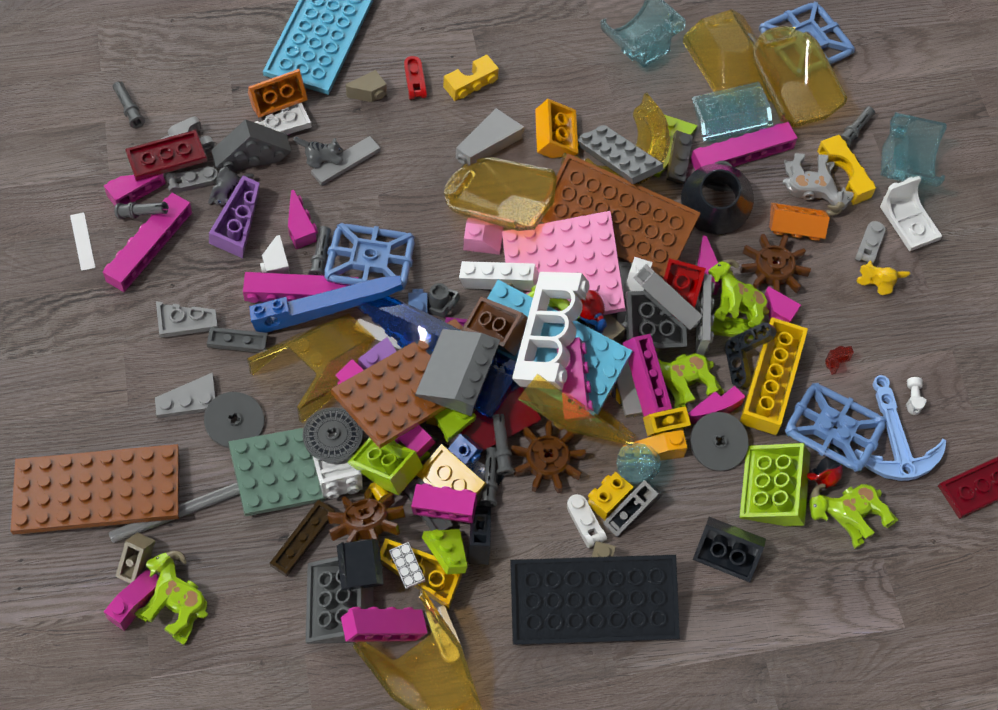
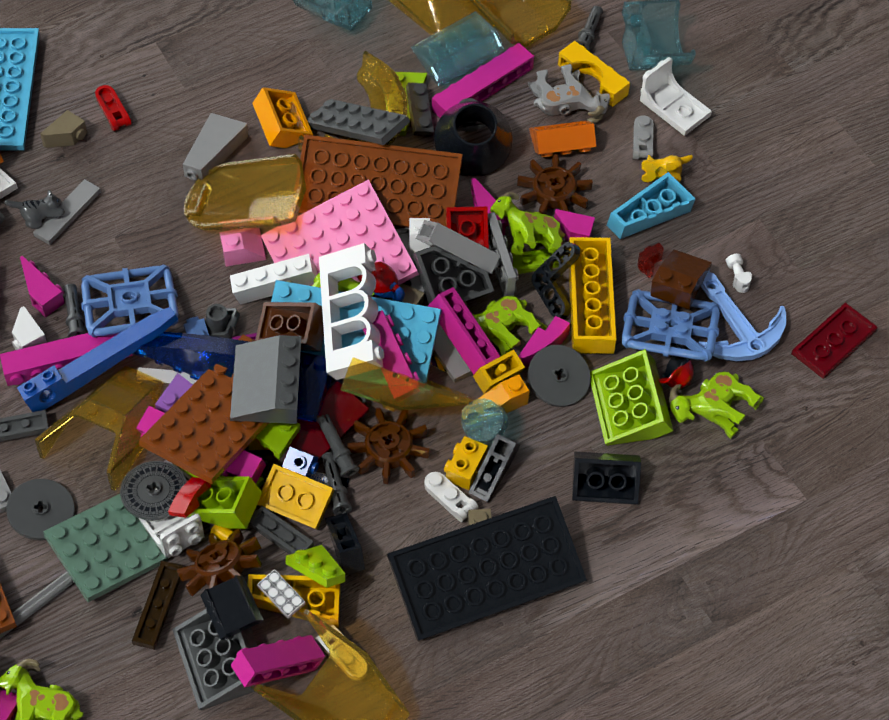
camera: 15 degrees left, 5 degrees down
(355, 453) = (187, 498): none -> red slope
(444, 503) = (297, 521): dark pink brick -> none
(461, 85) = (164, 101): yellow arch -> none
(856, 309) = (651, 206): none -> medium azure wedge
(858, 385) = (679, 278): none -> reddish brown slope

